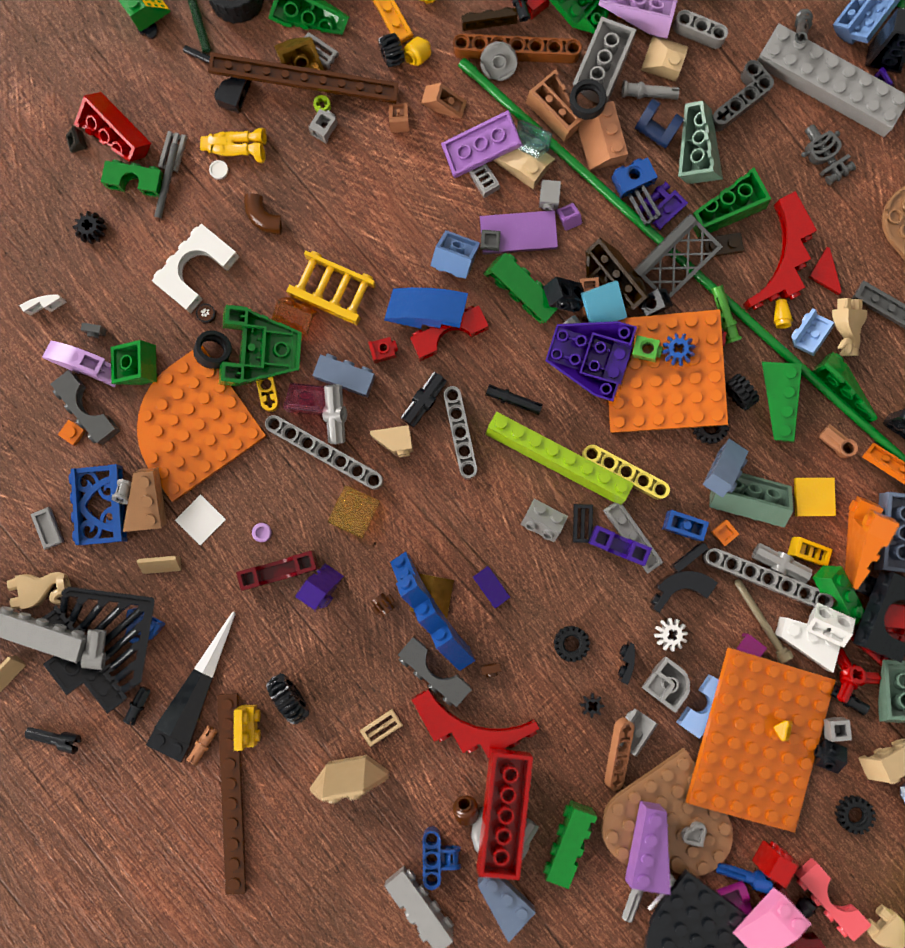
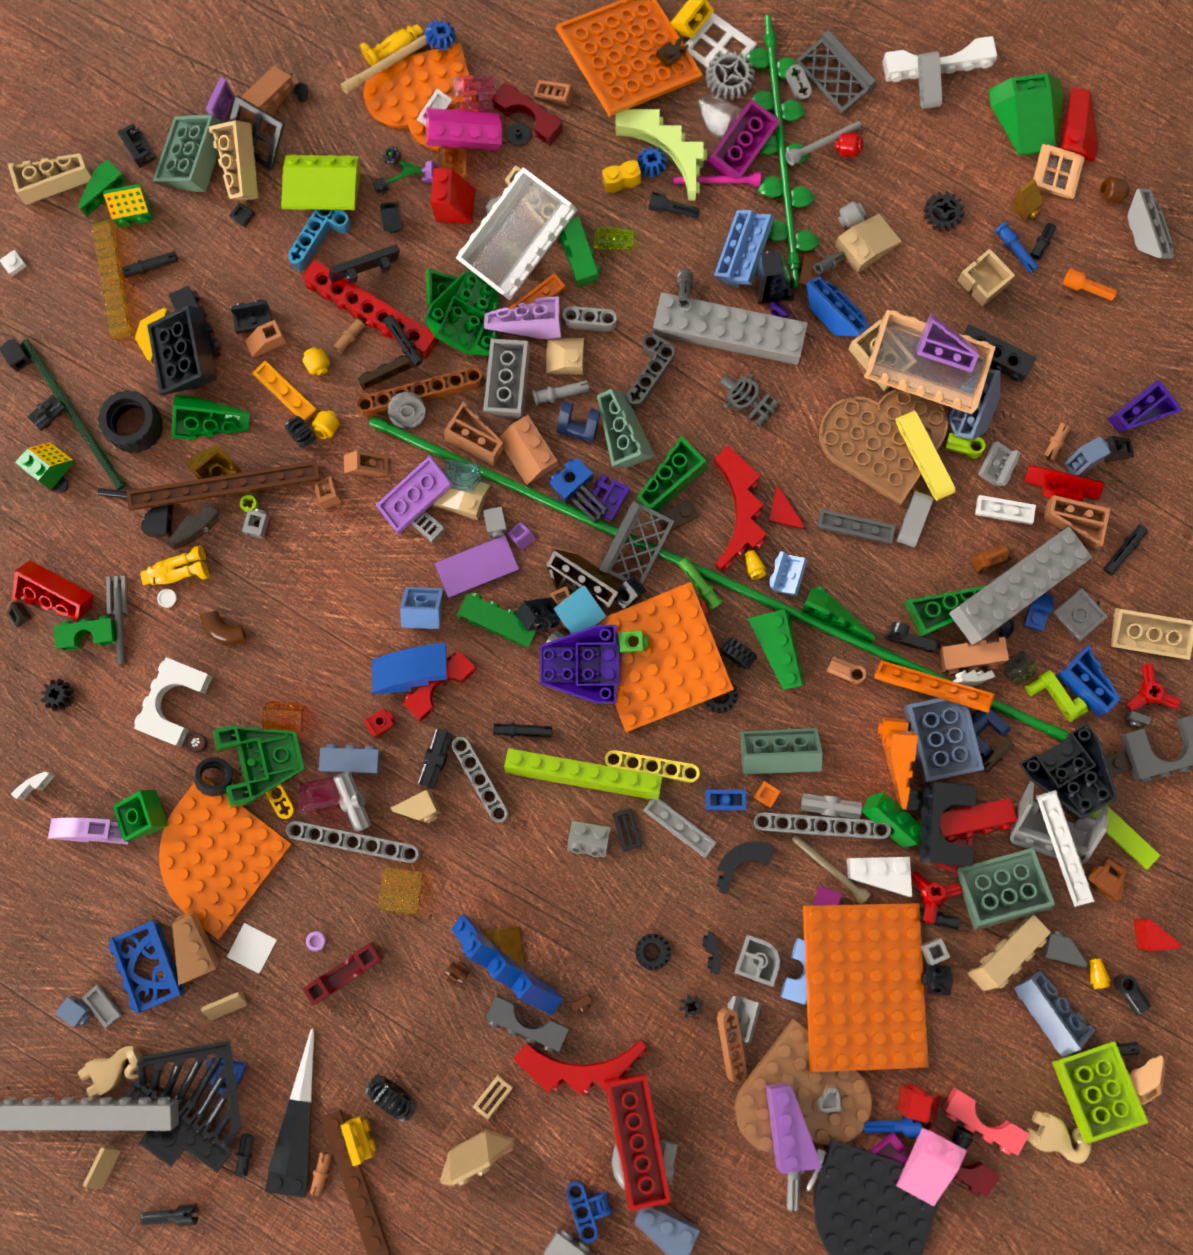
camera: 15 degrees left, 5 degrees down
(19, 525) = (74, 1012): none -> sand blue brick
(71, 390) = (86, 862): dark grey arch -> none
(71, 432) = (98, 902): orange plate -> none
(93, 330) = (90, 795): dark grey plate -> none
(94, 655) = (186, 1118): light grey piece -> none
(122, 491) = (166, 945): light grey bush -> none
(264, 110) = (194, 528): none -> clear smoke slope
(316, 298) = (319, 695): yellow fence -> none
(318, 588) = (388, 979): dark purple wedge -> none
(330, 59) = (244, 457): light grey tile -> none
(466, 810) = (600, 1151): reddish brown head -> none
(490, 240) = (451, 583): dark grey tile -> none
(491, 587) = (557, 921): dark purple slope -> none
(569, 843) = (712, 1151): green wedge -> none
(588, 84) = (491, 412): black tyre -> none
(620, 545) = (667, 840): dark purple arch -> none
(672, 626) = (753, 909): white gear -> none
(679, 342) = (663, 626): blue gear -> none
(689, 557) = (739, 829): black tile -> none
(726, 468) = (746, 732): sand blue brick -> none
(784, 730) = (882, 969): yellow slope -> none
(798, 547) = (842, 785): yellow slope -> none
(814, 497) = (842, 731): yellow tile -> none
(830, 624) = (892, 851): white brick -> none
(849, 321) = (818, 551): tan hips -> none
(863, 823) = (993, 1030): black tyre -> none

